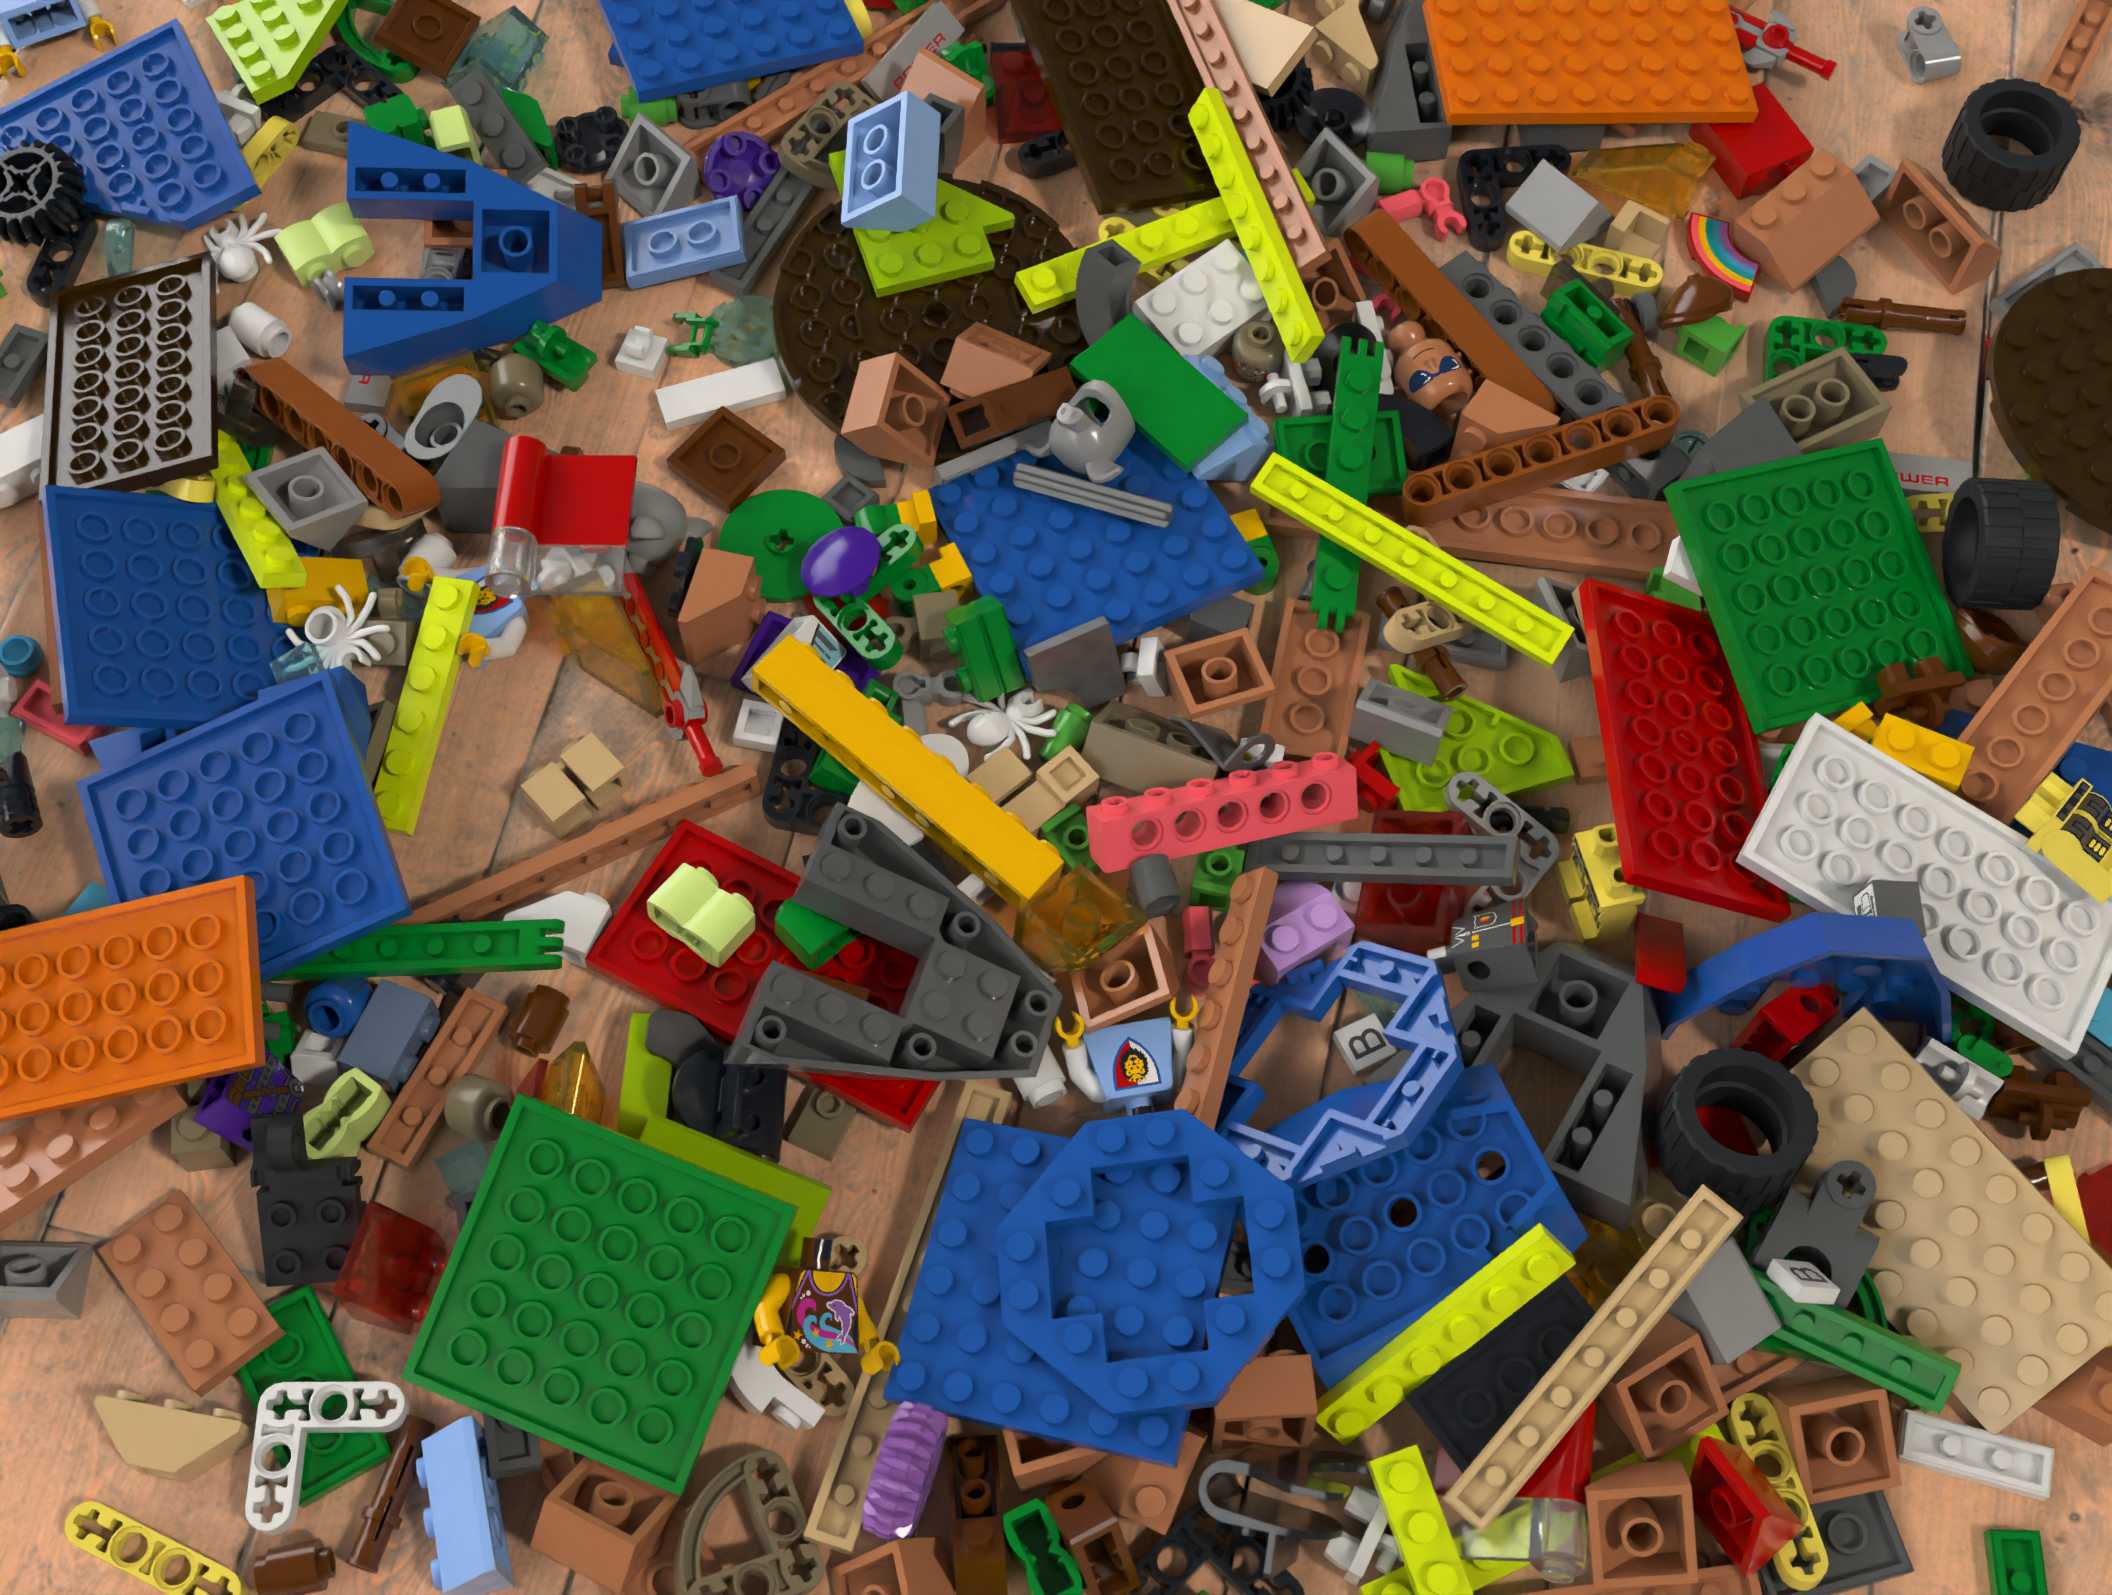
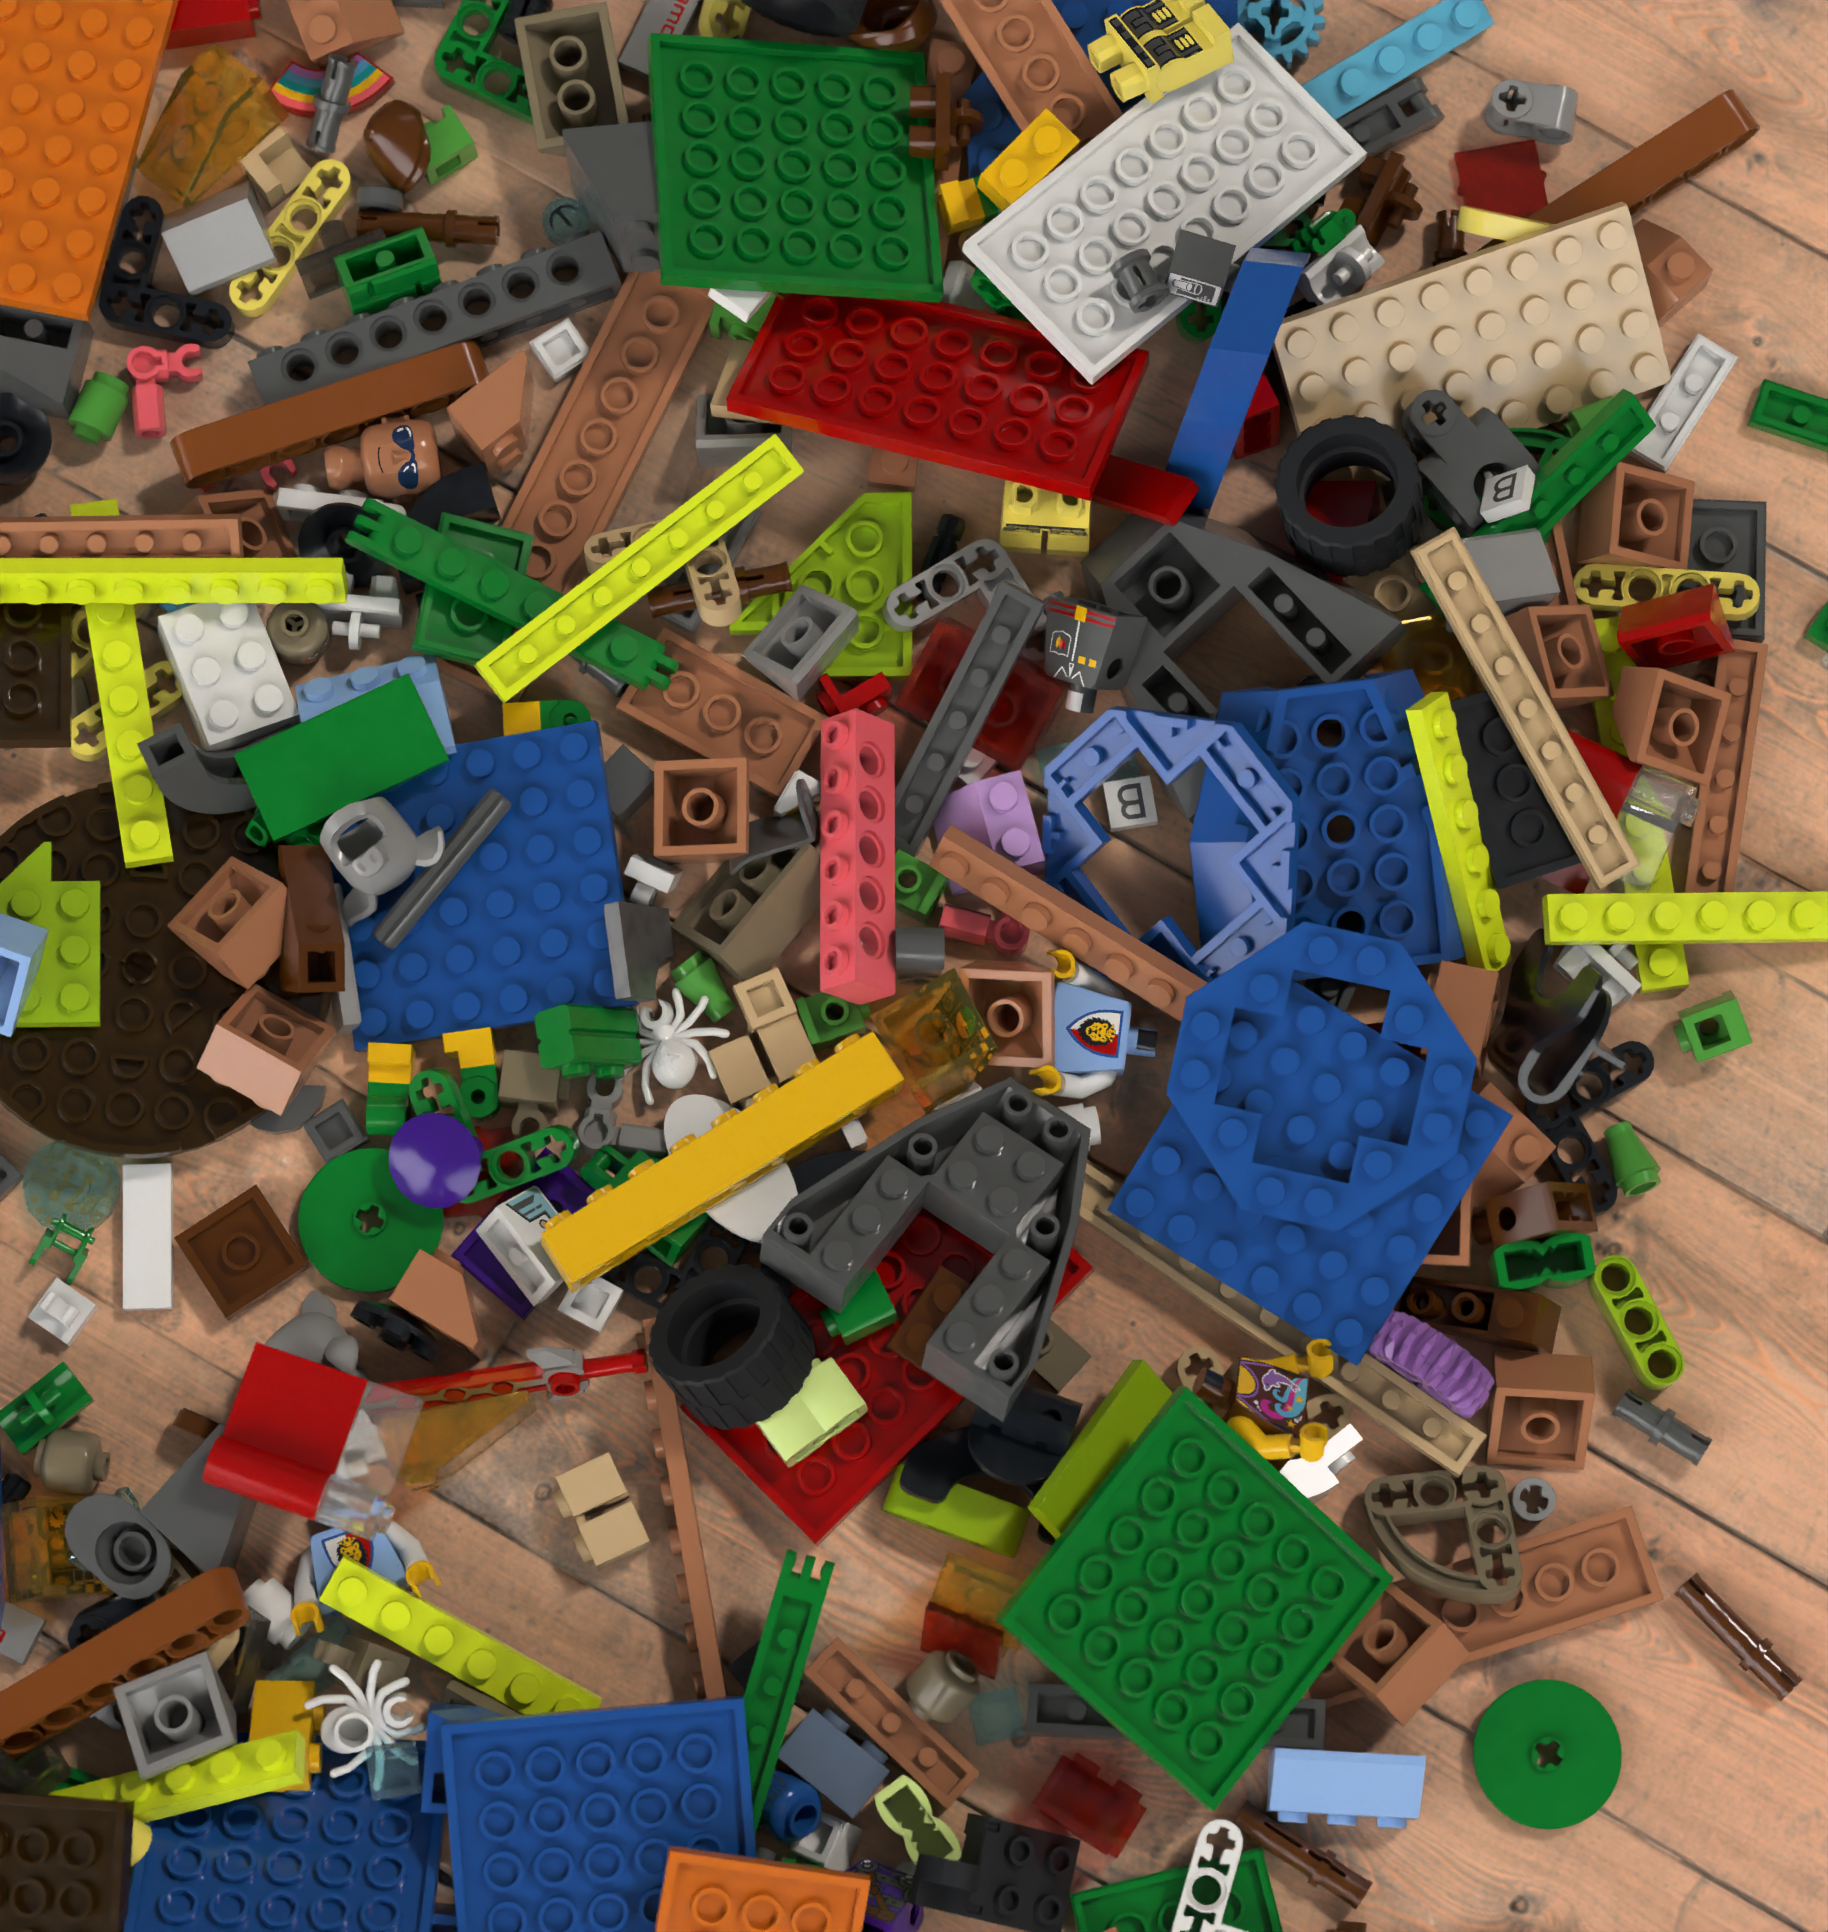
camera: 70 degrees left, 15 degrees up
(539, 1021) = (861, 1608): reddish brown brick -> none
(584, 921) = (761, 1556): white slope -> none
(739, 827) = (758, 1375): none -> black tyre
(1340, 182) = (102, 468): light grey slope -> none
(1552, 446) = (548, 366): dark orange beam -> none
(1707, 251) = (331, 103): none -> dark grey pin
(1852, 866) = (1128, 270): none -> dark grey bush

